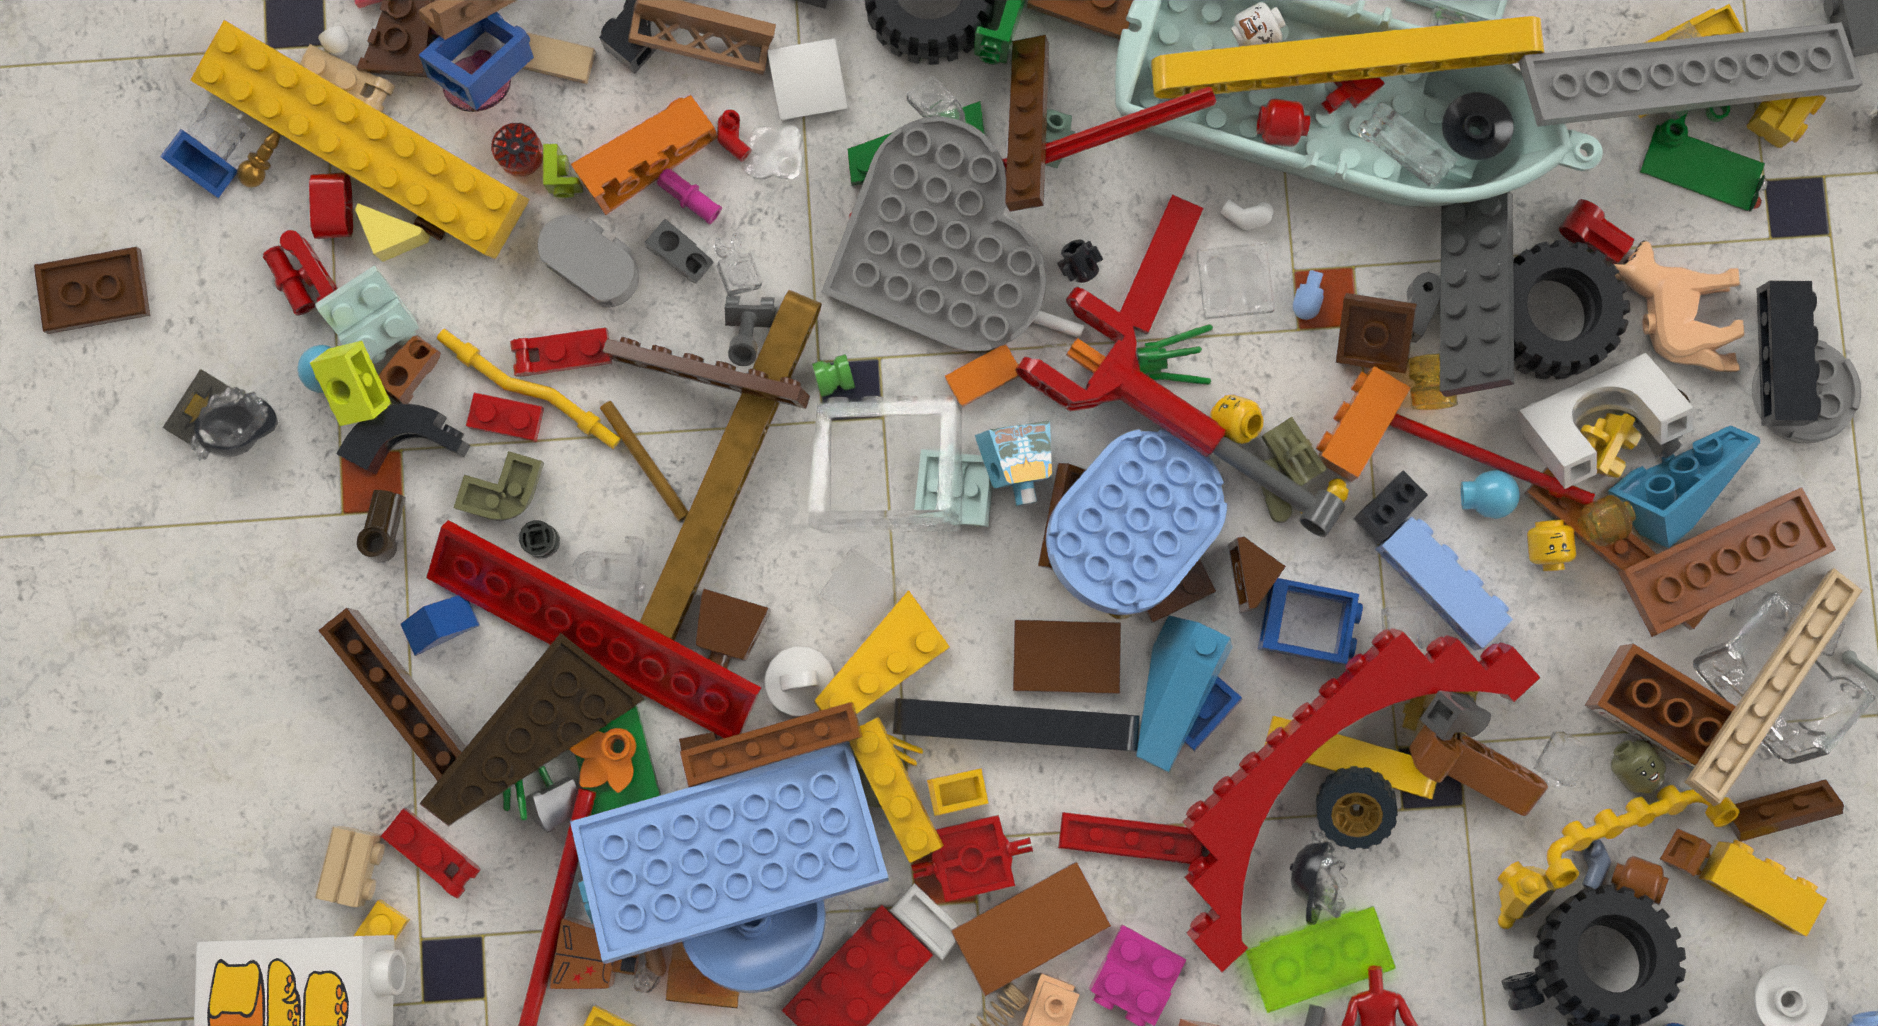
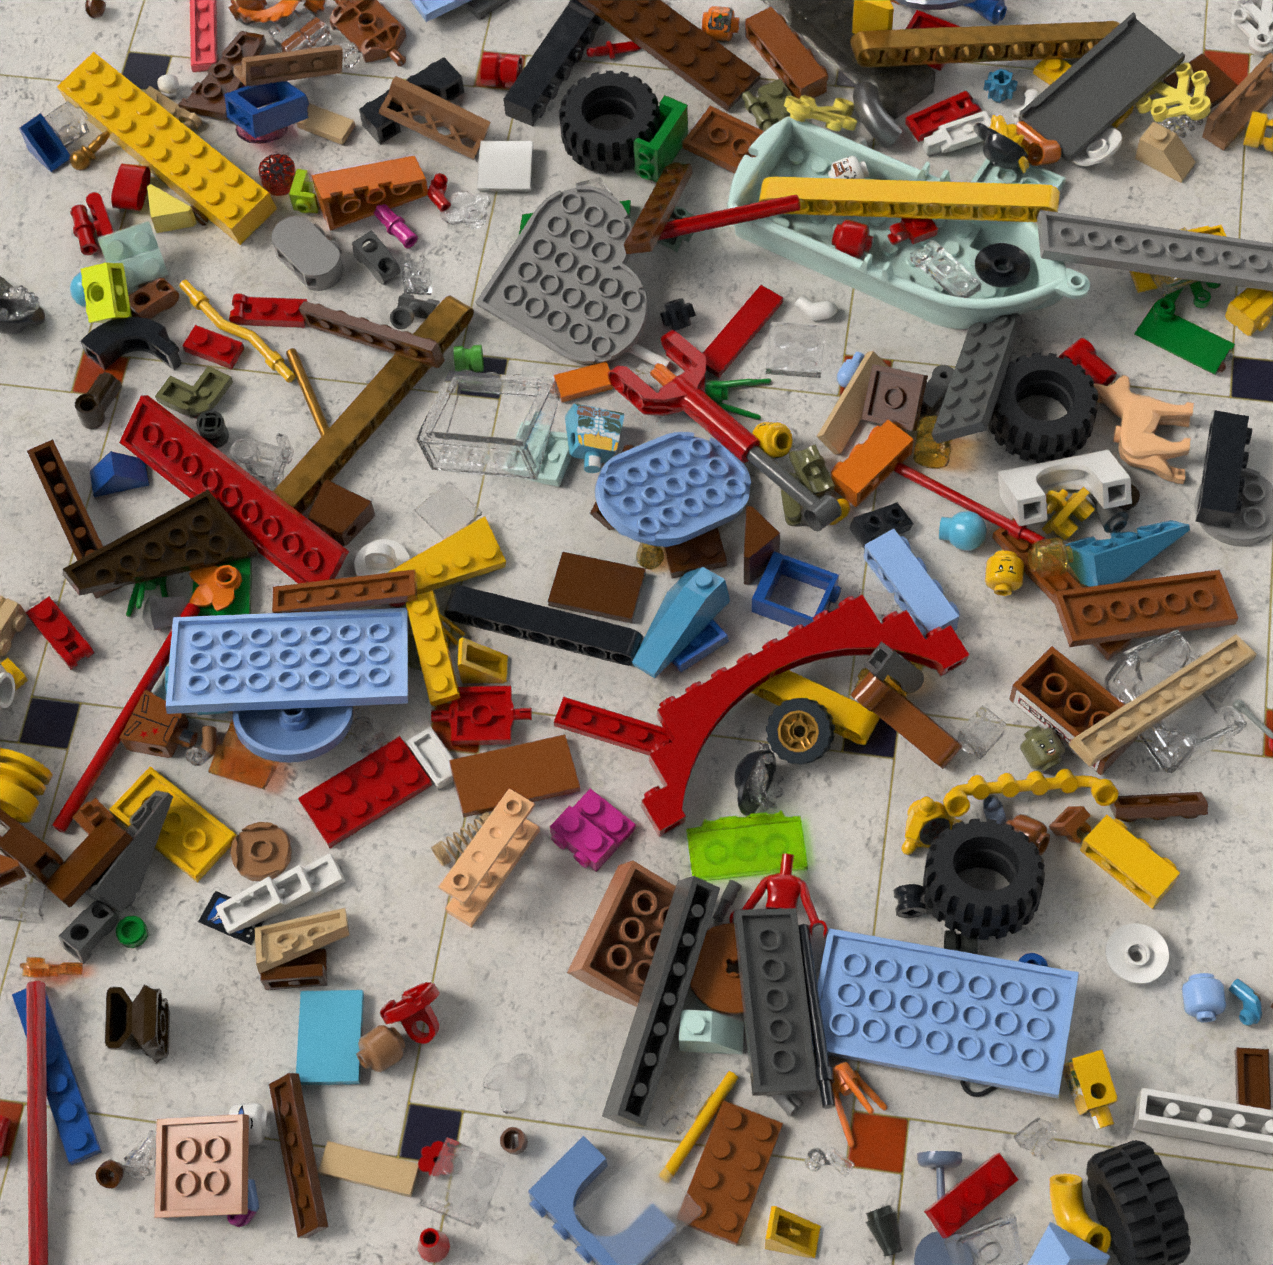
camera: 15 degrees right, 20 degrees down
(1321, 344) = (849, 407): none -> tan tile

